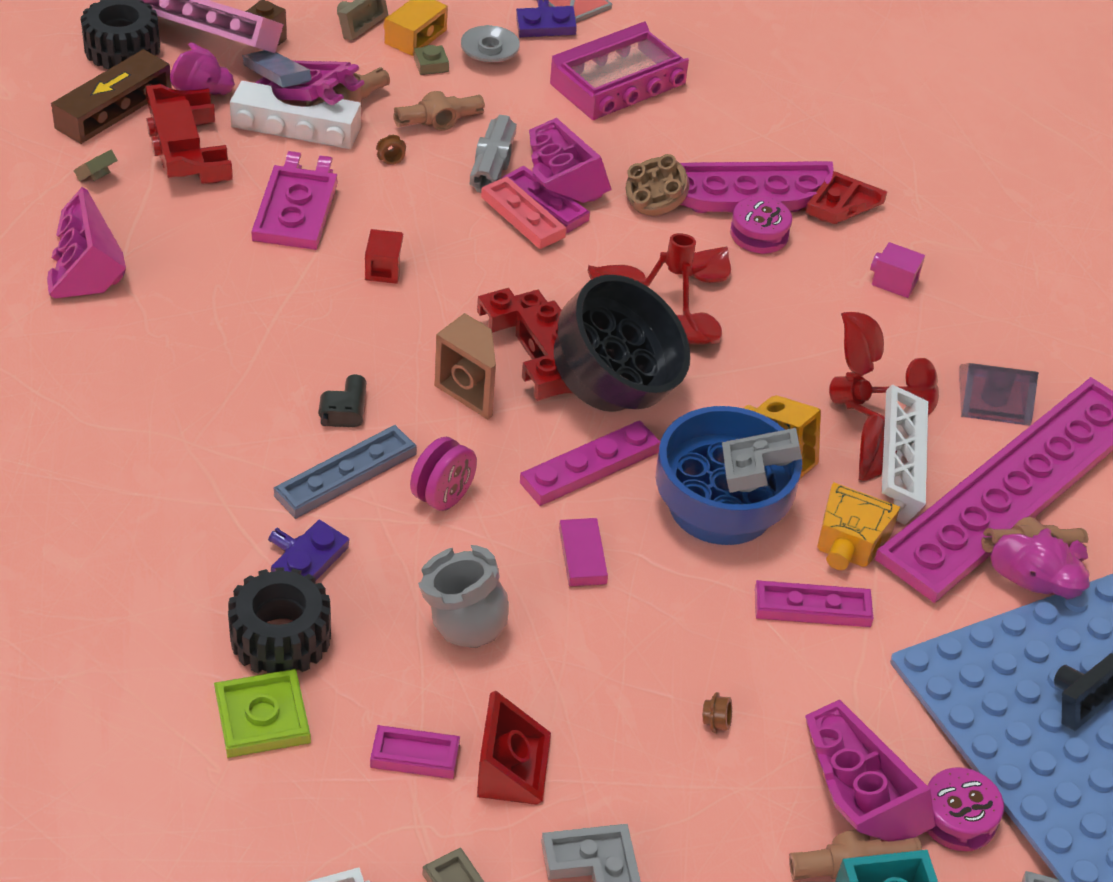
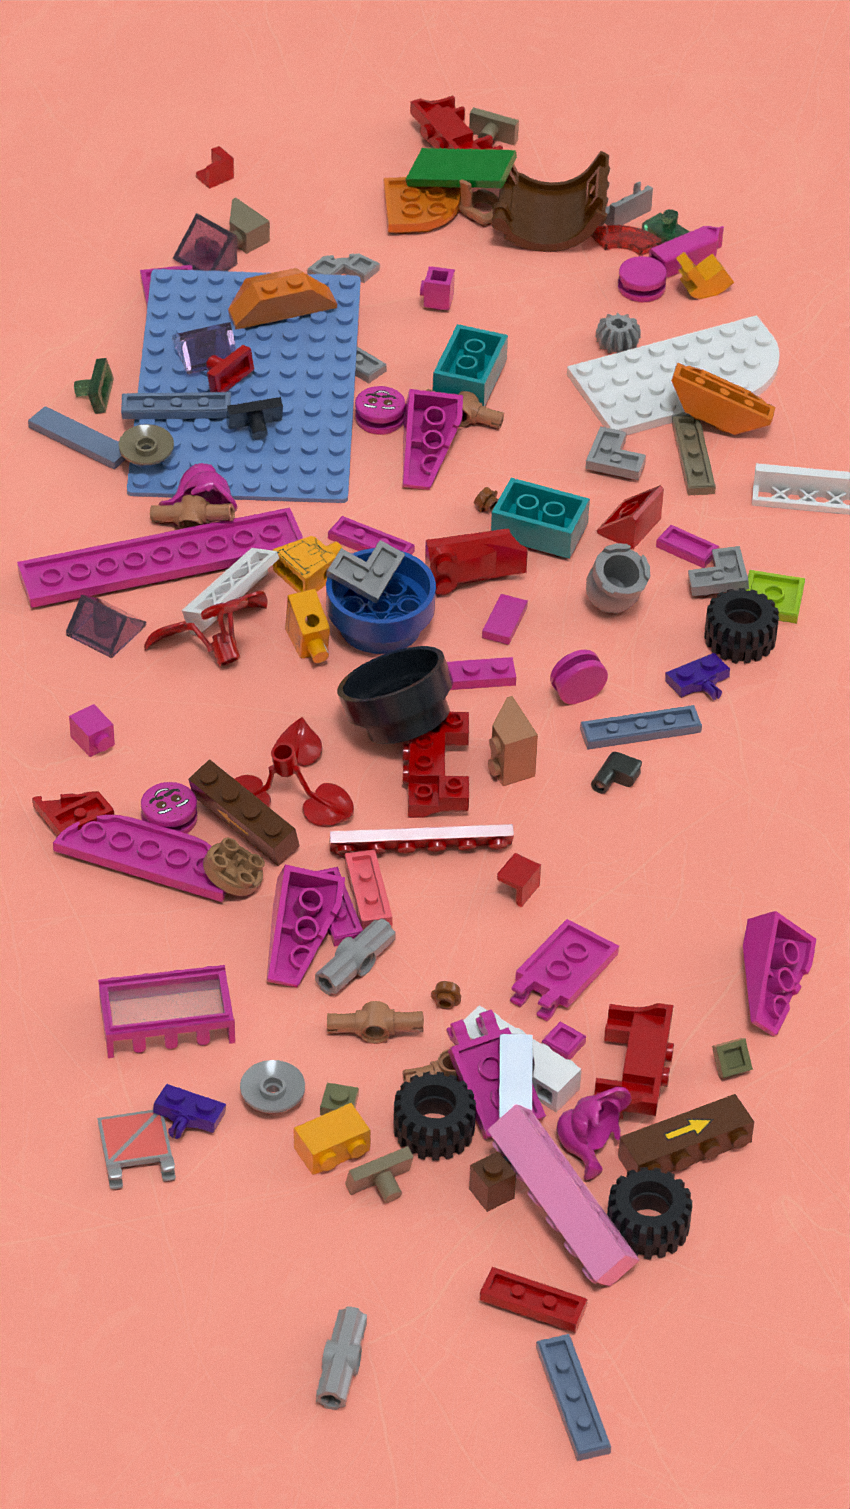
camera: 150 degrees left, 0 degrees up
(263, 150) = (565, 1040): none -> dark pink tile
(335, 708) = (726, 574): none -> light grey plate
(342, 40) = (434, 1135): none -> black tyre
(502, 265) = (433, 838): none -> plate
(625, 685) = (541, 517): none -> teal brick
(665, 578) = (474, 558): none -> red slope
(713, 225) = (244, 812): none -> reddish brown brick

